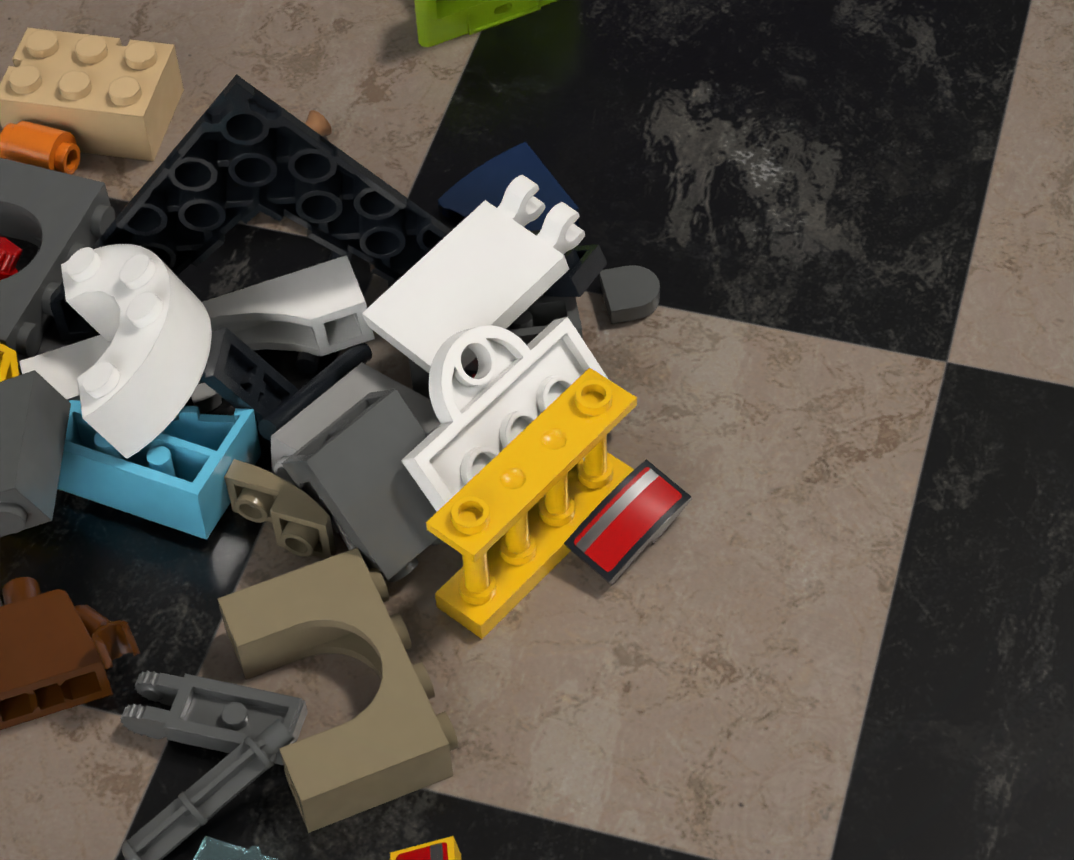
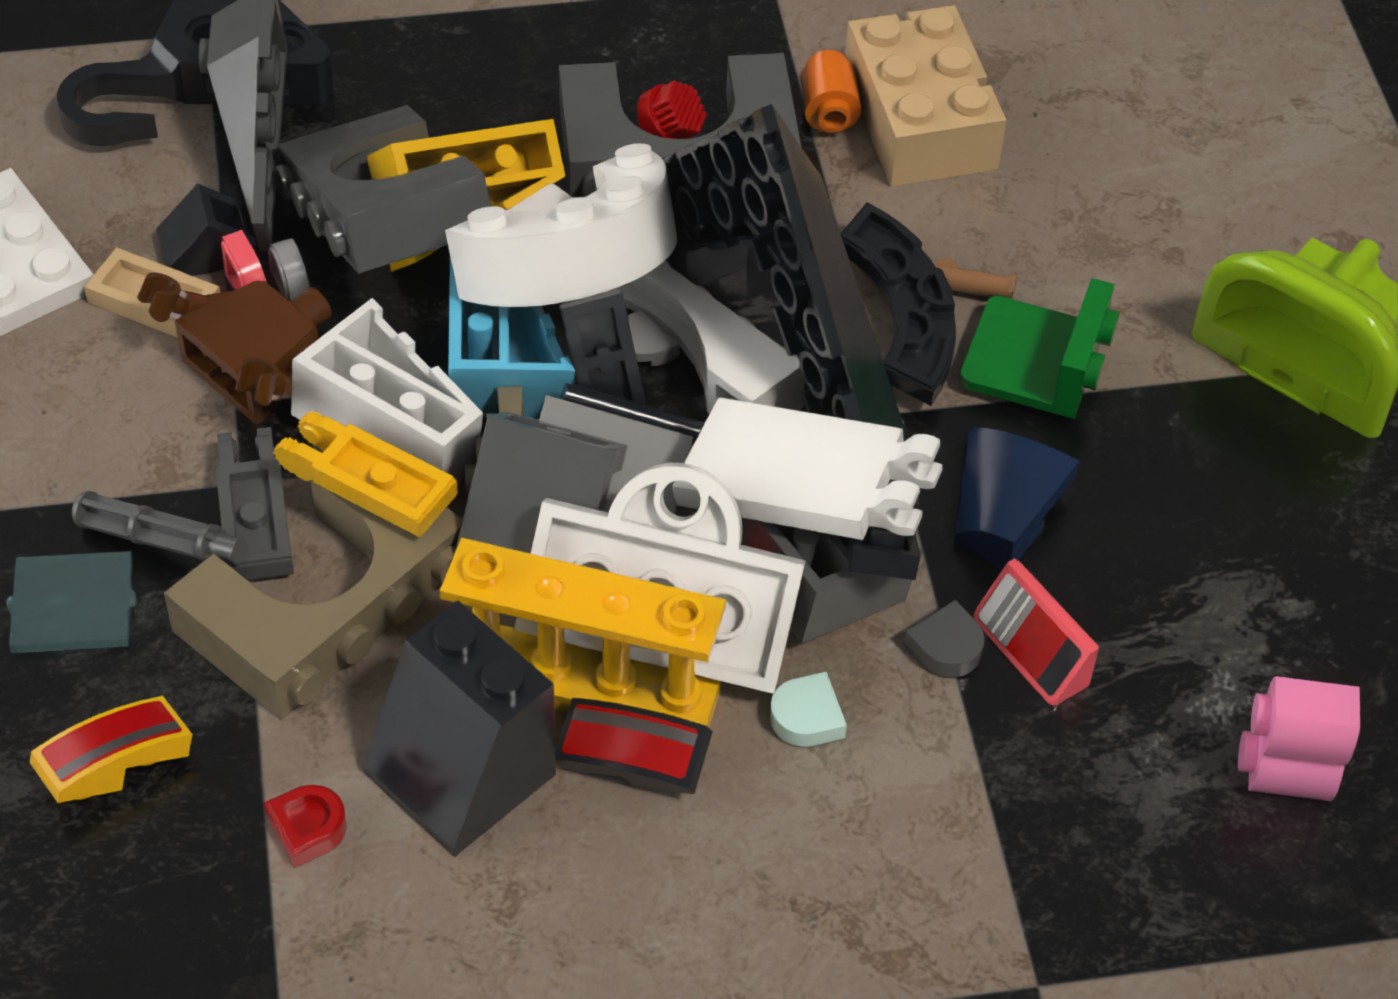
camera: 60 degrees right, 0 degrees up
(175, 568) = (379, 384): none -> white wedge
(271, 594) = (368, 472): none -> yellow hinge
(404, 125) = (1041, 353): none -> green bracket
(574, 618) = (462, 729): none -> black slope
(576, 784) = (307, 821): none -> red tile
(655, 402) = (807, 712): none -> light aqua tile
(658, 233) = (1037, 634): none -> slope
(844, 116) = (1300, 738): none -> bright pink brick

